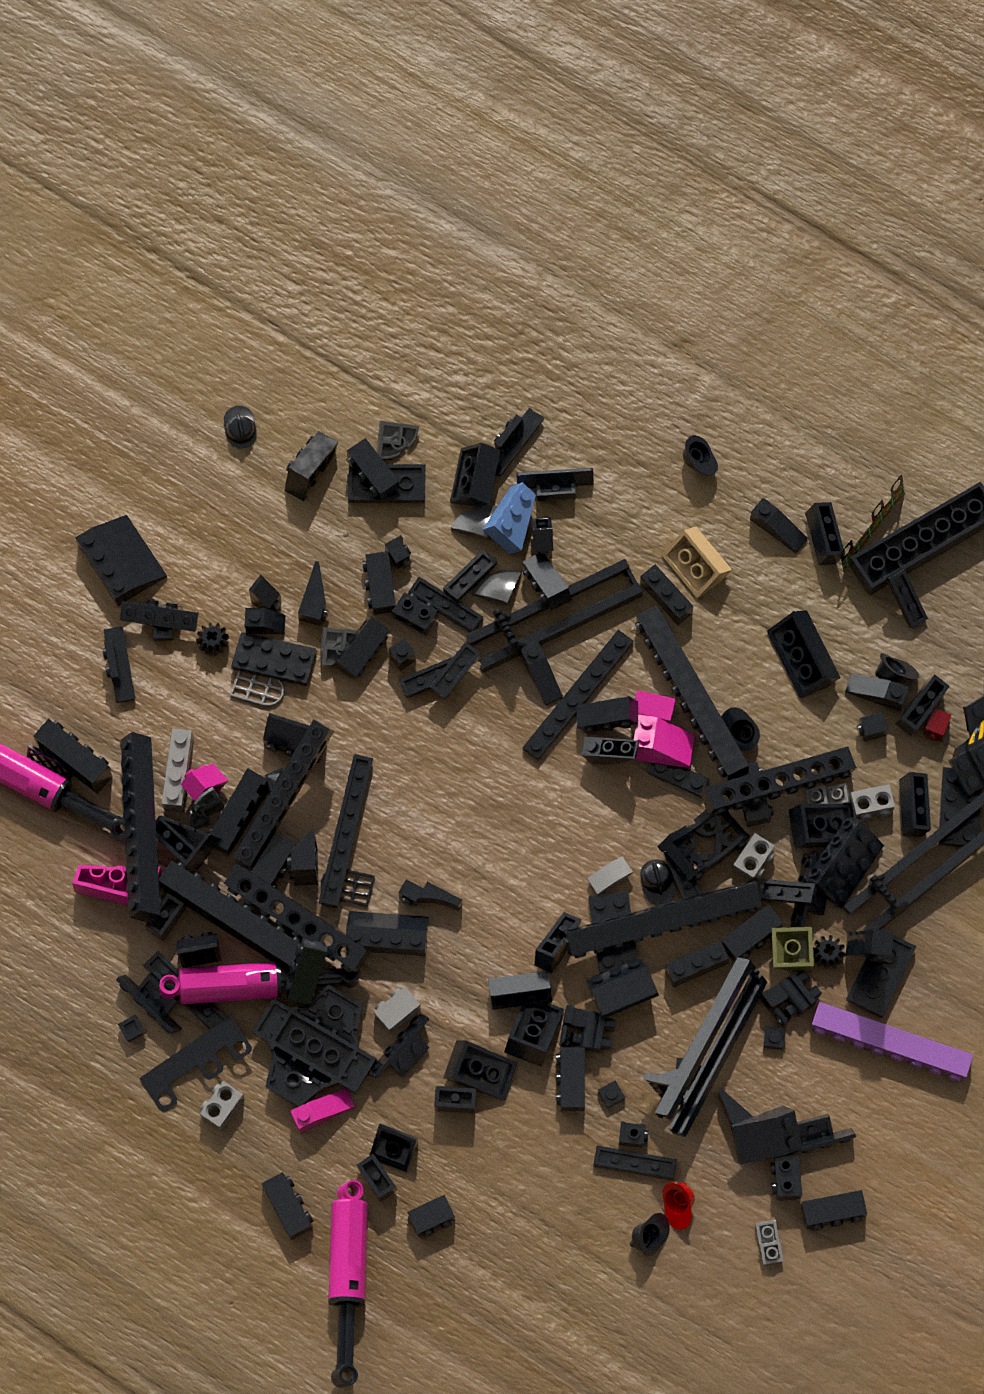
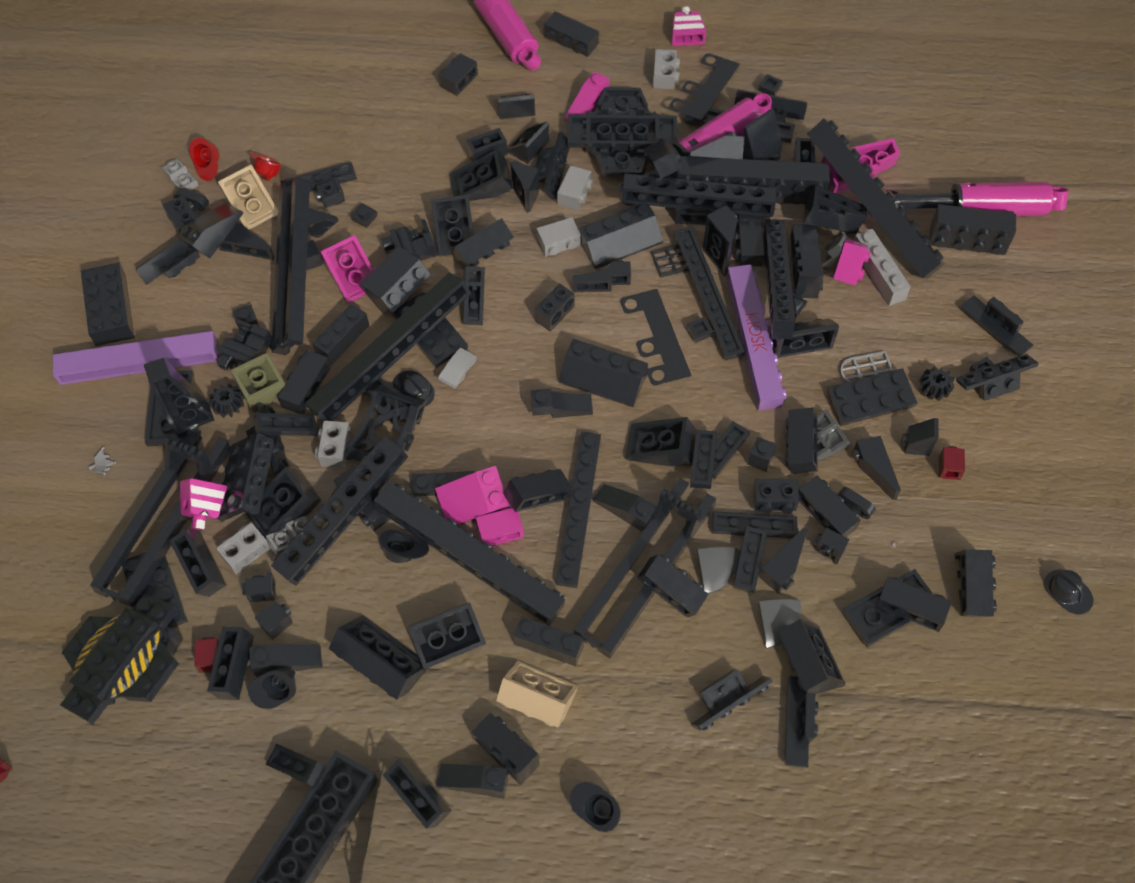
camera: 150 degrees right, 10 degrees down
(120, 558) = (1071, 408): black slope -> none
(164, 1147) = (688, 28): none -> dark pink torso
(246, 954) = (721, 147): none -> slope
(253, 566) = (951, 463): none -> dark red brick
(264, 621) = (902, 418): black slope -> none
(334, 764) = (755, 338): none -> medium lavender brick
(354, 576) = (857, 503): none -> black beam
(376, 798) = (700, 329): none -> black plate
(376, 1177) = (515, 74): black brick -> none
(394, 438) = (917, 659): dark grey brick -> none
(409, 1091) = (530, 142): none -> black slope
(410, 812) = (664, 337): none -> black piece
(443, 1029) = (525, 183): none -> black slope
(444, 962) = (558, 237): none -> light grey brick
(447, 556) = (782, 567): none -> black slope
(478, 710) = (662, 442): none -> black slope
(486, 801) = (603, 373): none -> black slope
(491, 887) = (554, 307): none -> black brick
(511, 518) = (748, 632): medium blue wedge -> none
(540, 792) = (560, 404): none -> black slope
(542, 535) = (706, 628): black brick -> none
(571, 1078) = (401, 205): black brick -> none
(609, 750) = (517, 458): black slope -> none
(651, 1234) = (279, 133): black piece -> none
(655, 1033) = (347, 267): none -> dark pink slope
(714, 1171) = (249, 195): none -> tan slope
(736, 1243) = (205, 158): none -> red piece
(742, 531) = (506, 748): none -> black wedge
(743, 641) = (446, 635): none -> black slope
(770, 1202) = (198, 200): none -> black beam
(834, 1210) = (134, 217): black brick -> none
(873, 759) = (260, 588): none -> black brick
(889, 853) = (201, 501): none -> dark pink torso
(896, 1115) = (107, 304): none -> black brick
(961, 951) = (101, 462): none -> light grey piece

